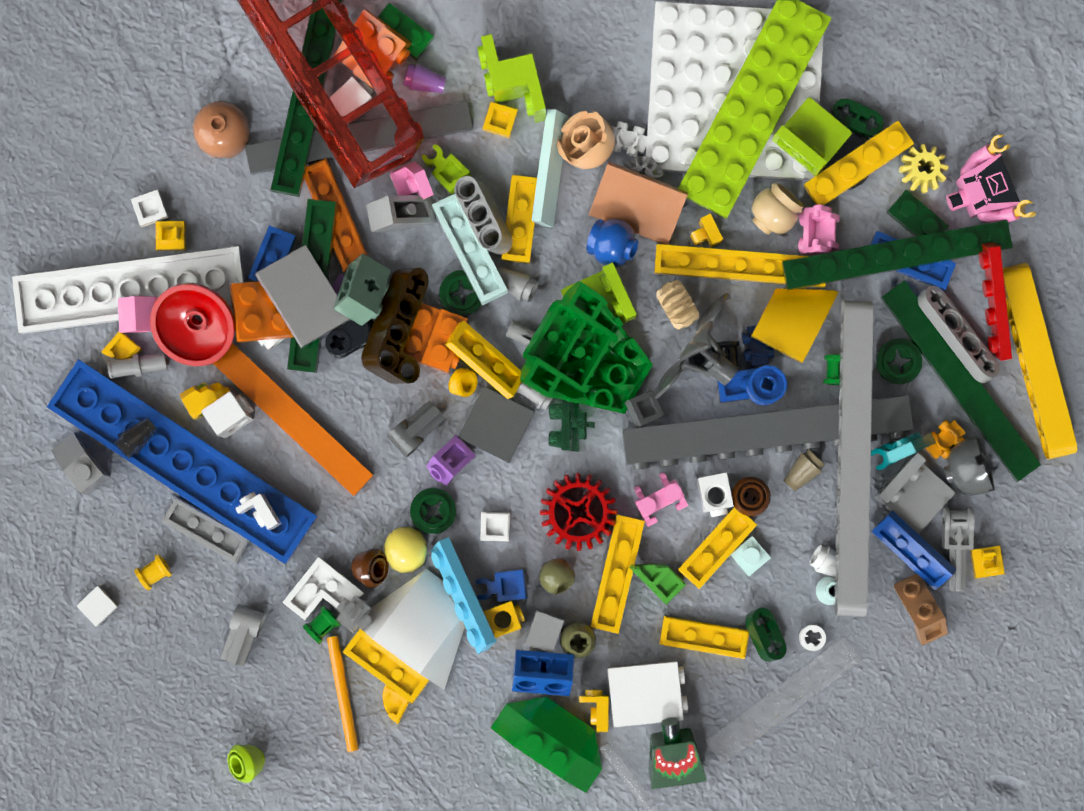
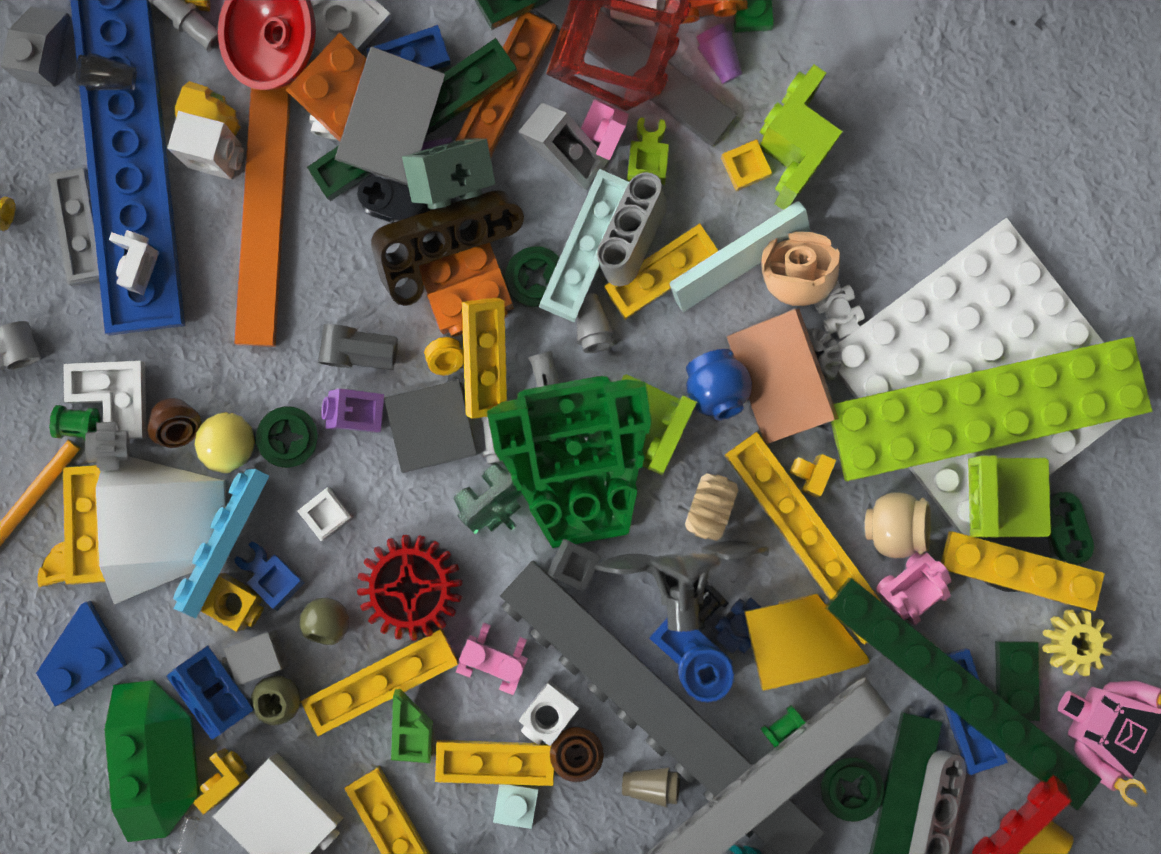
camera: 50 degrees right, 0 degrees up
(458, 734) = (80, 656): none -> blue wing

